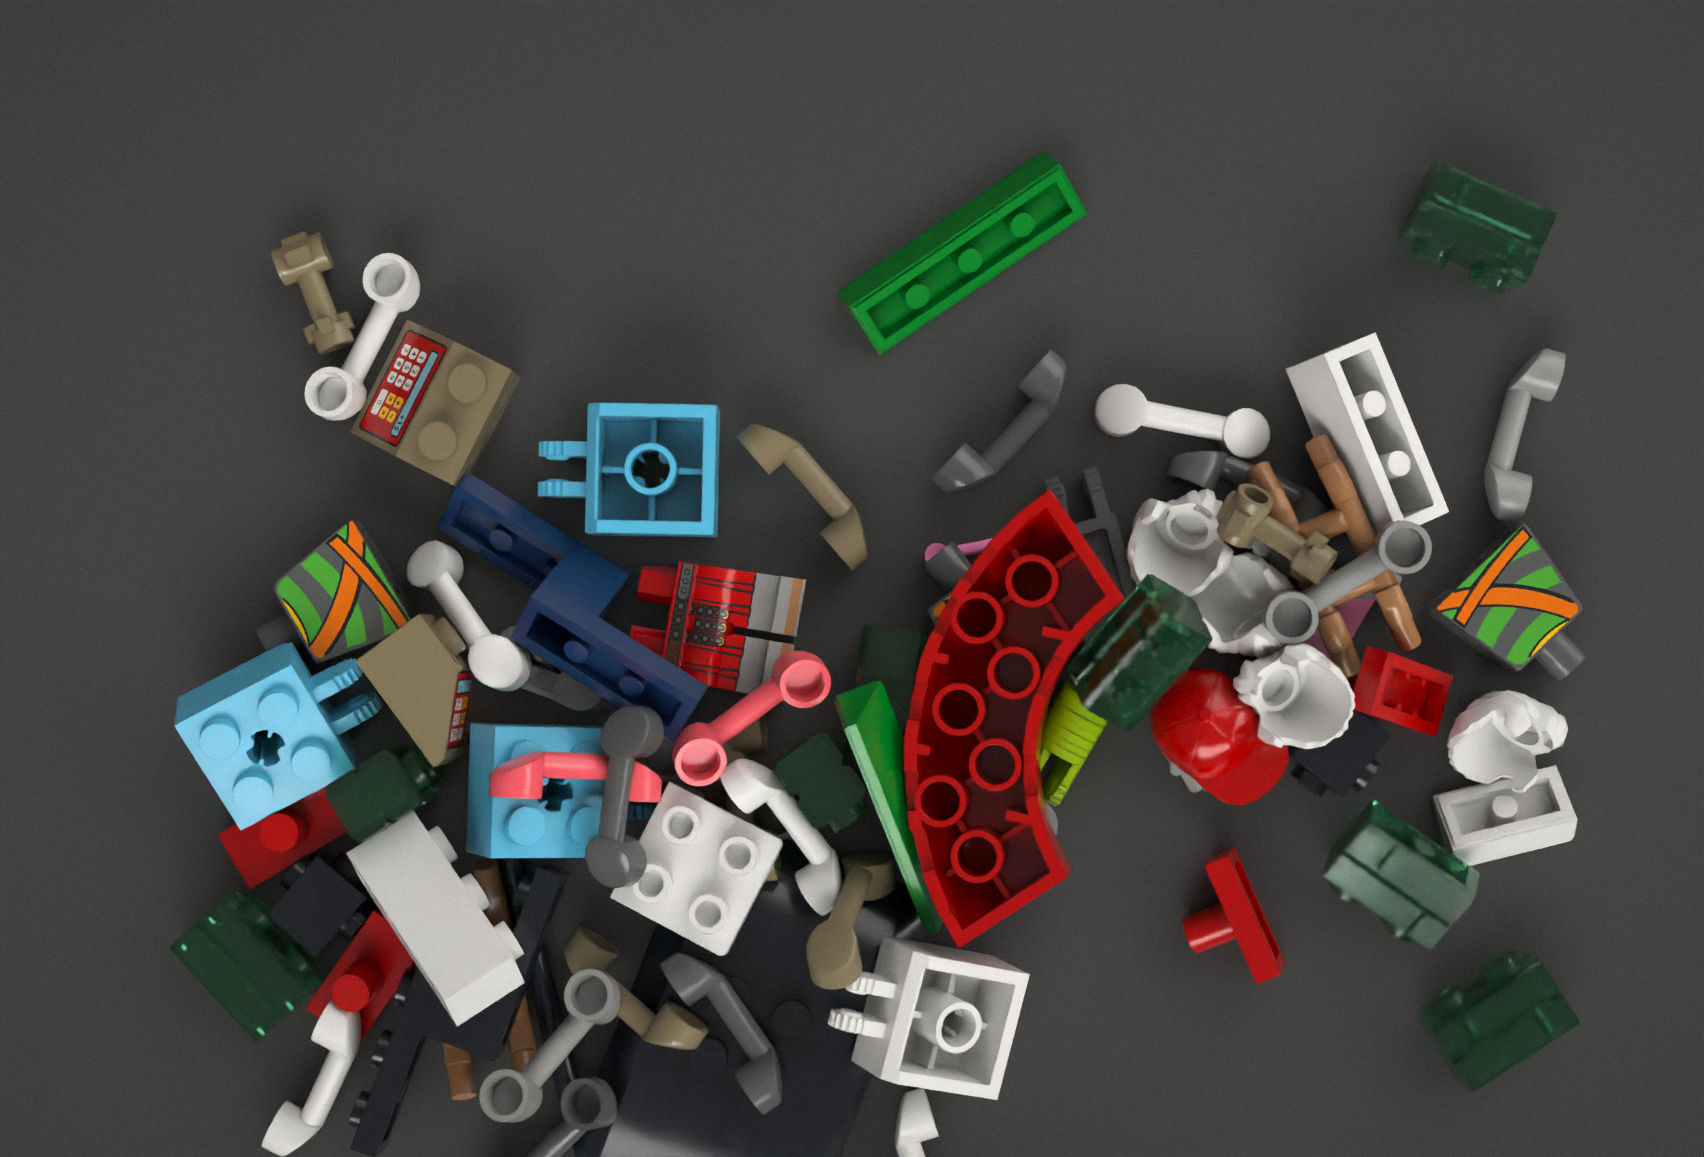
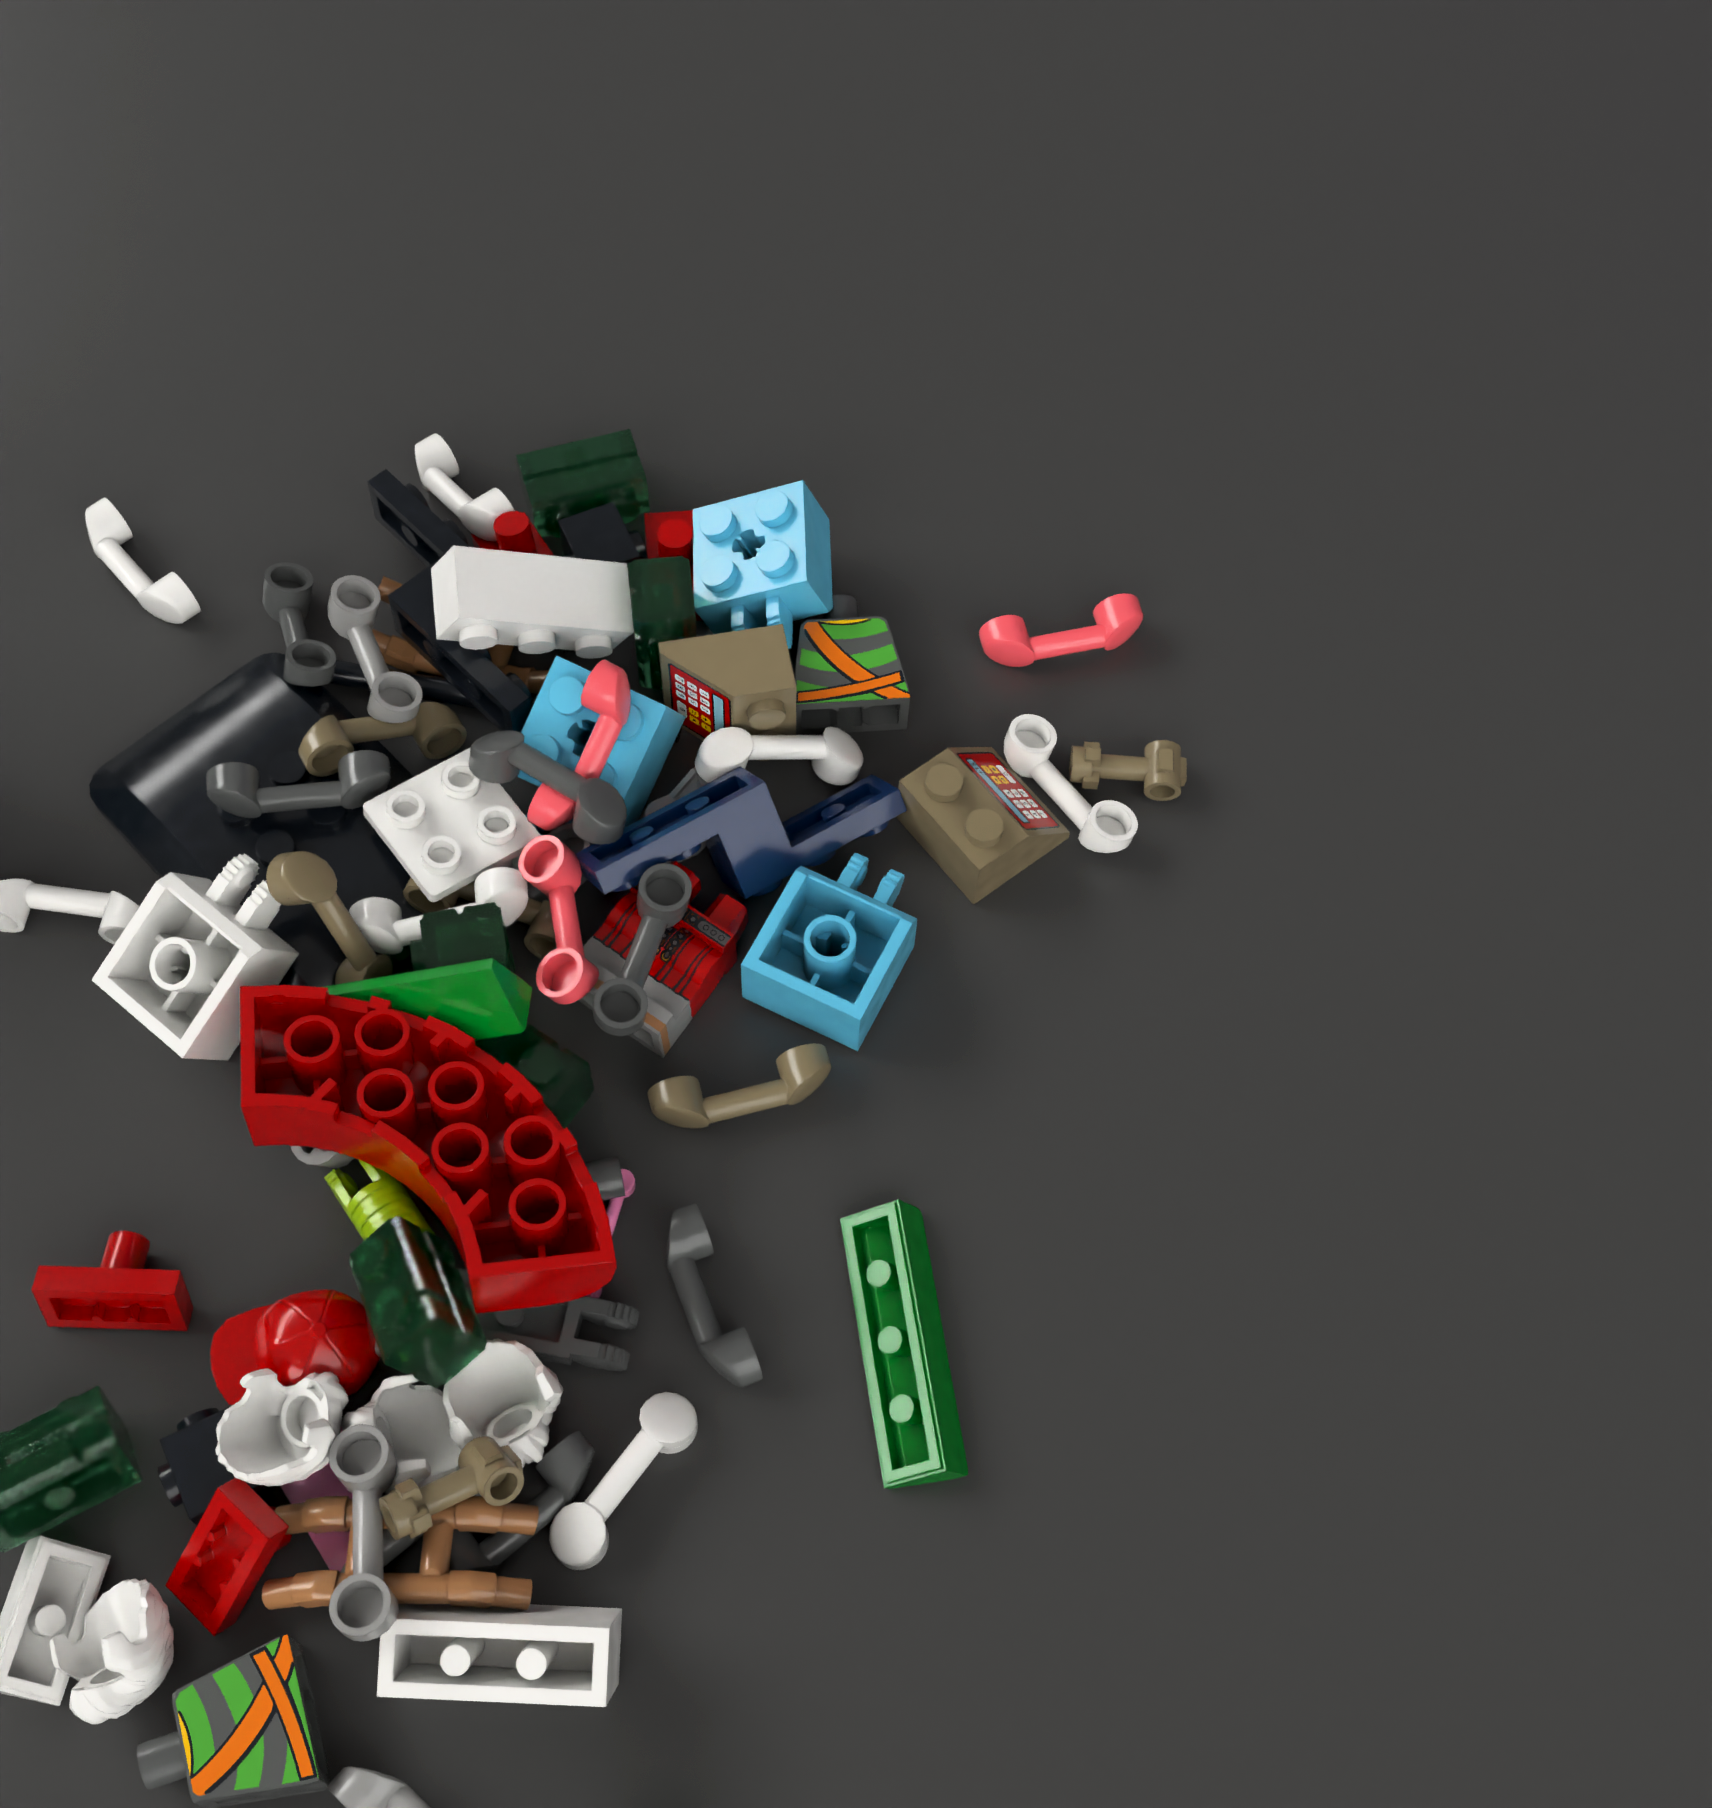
camera: 110 degrees right, 25 degrees down
(227, 459) = (1009, 644): none -> coral bar
(683, 637) = (661, 903): none -> dark grey bar

